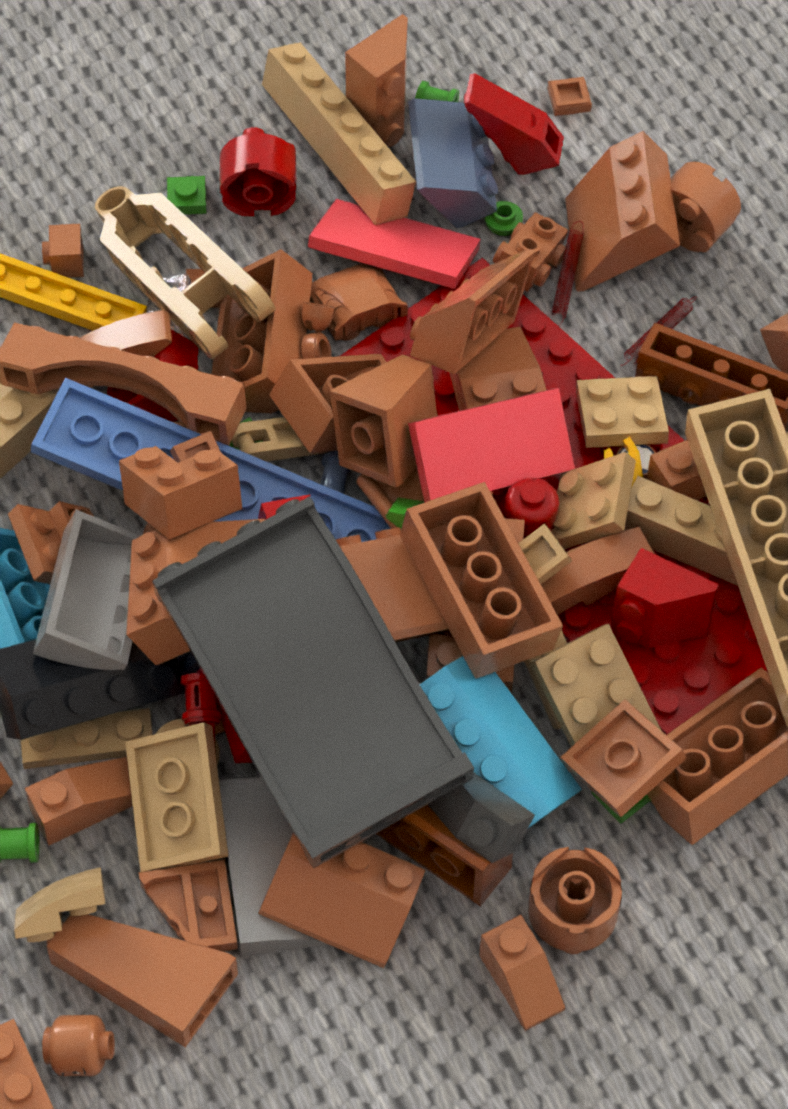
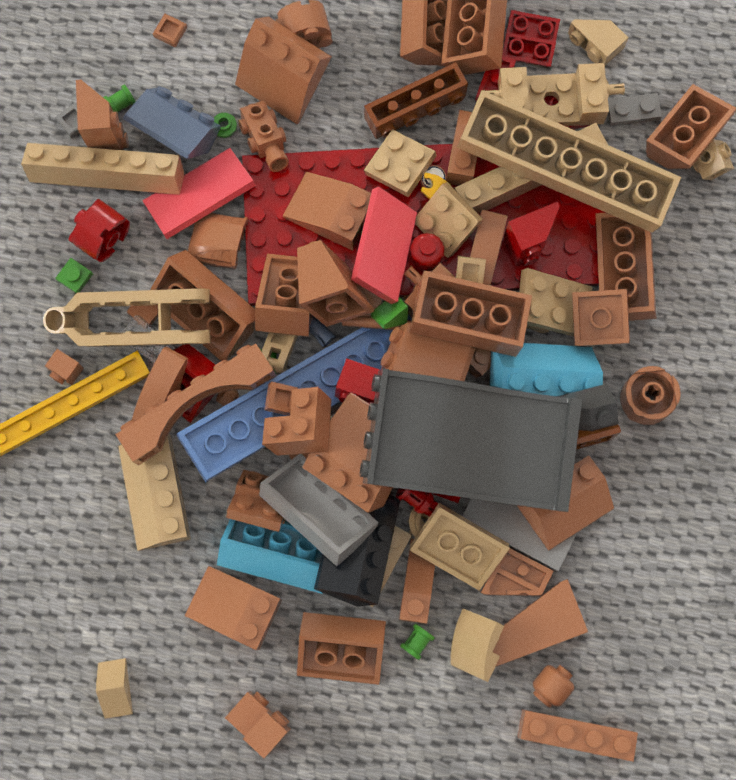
camera: 50 degrees left, 20 degrees up
(315, 346) = (237, 284): nougat tile -> none
(316, 316) = (218, 267): nougat hinge -> none
(472, 314) = (296, 193): nougat slope -> none
(515, 126) = (181, 76): red slope -> none
(521, 972) = (664, 448): nougat slope -> none
(565, 272) = (283, 110): red piece -> none
(679, 303) = (357, 102): red piece -> none

